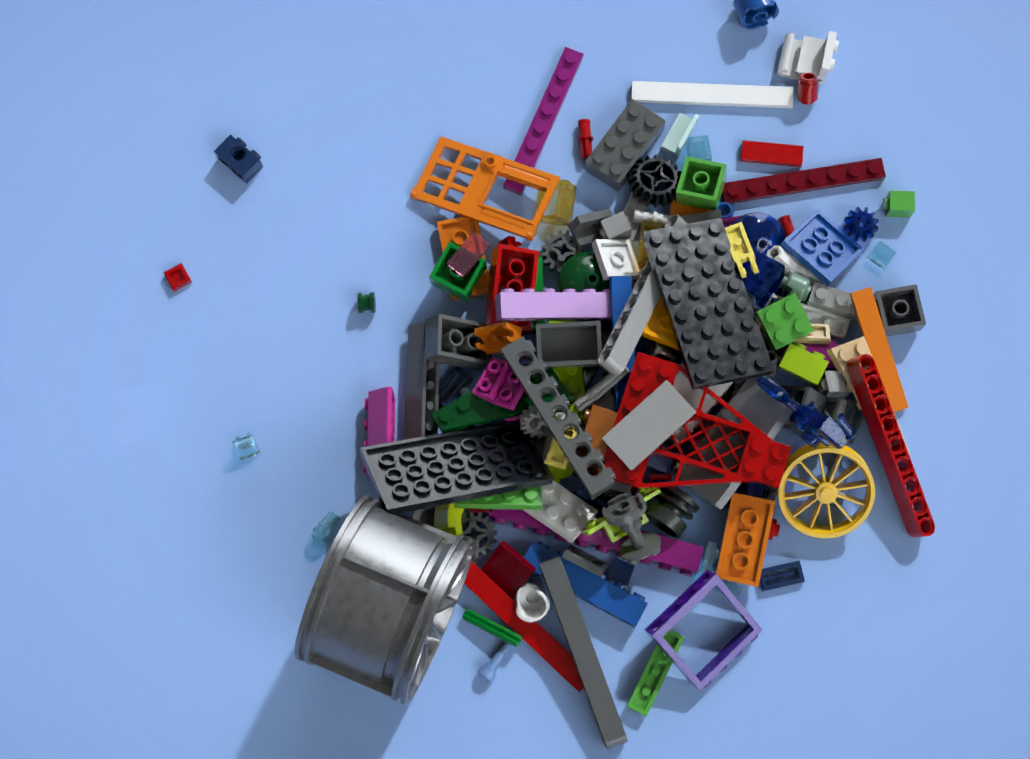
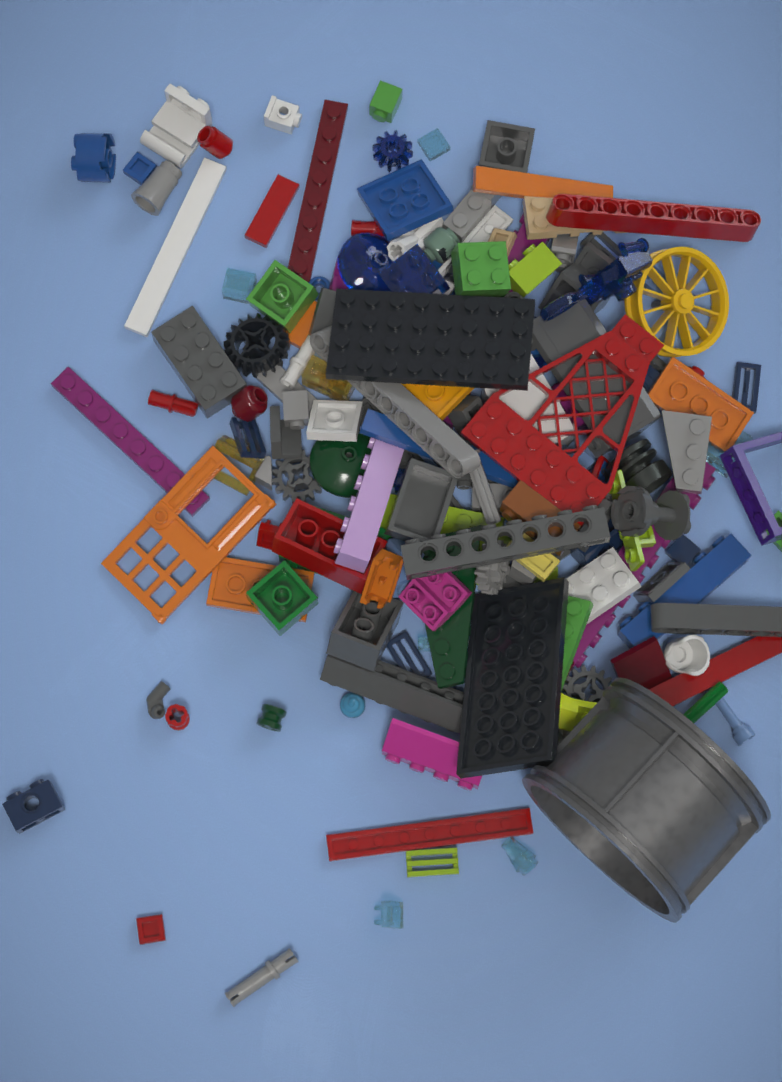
camera: 75 degrees left, 0 degrees up
(174, 374) = (261, 977): none -> light grey pin
(292, 447) = (445, 851): none -> lime tile
(316, 447) = (429, 834): none -> red tile
(340, 239) = (173, 723): none -> red bush
(350, 214) = (155, 702): none -> dark grey arm
(398, 359) = (352, 705): none -> dark azure plate
(468, 254) = (271, 576): clear pink tile -> none
(555, 225) = (264, 473): none -> light grey slope
(589, 196) = (252, 438): none -> dark blue tile
(606, 193) = (249, 403): none -> dark red head
(649, 425) = (550, 450): light grey tile -> none
(679, 133) = (210, 298): light aqua panel -> none
(700, 540) = (688, 447): none -> light grey wedge
(741, 248) = (380, 280): light yellow hinge -> none
(752, 61) = (157, 188): none -> light grey plant
(763, 44) = (139, 168): none -> blue plate
(851, 123) = (283, 123): none -> white brick

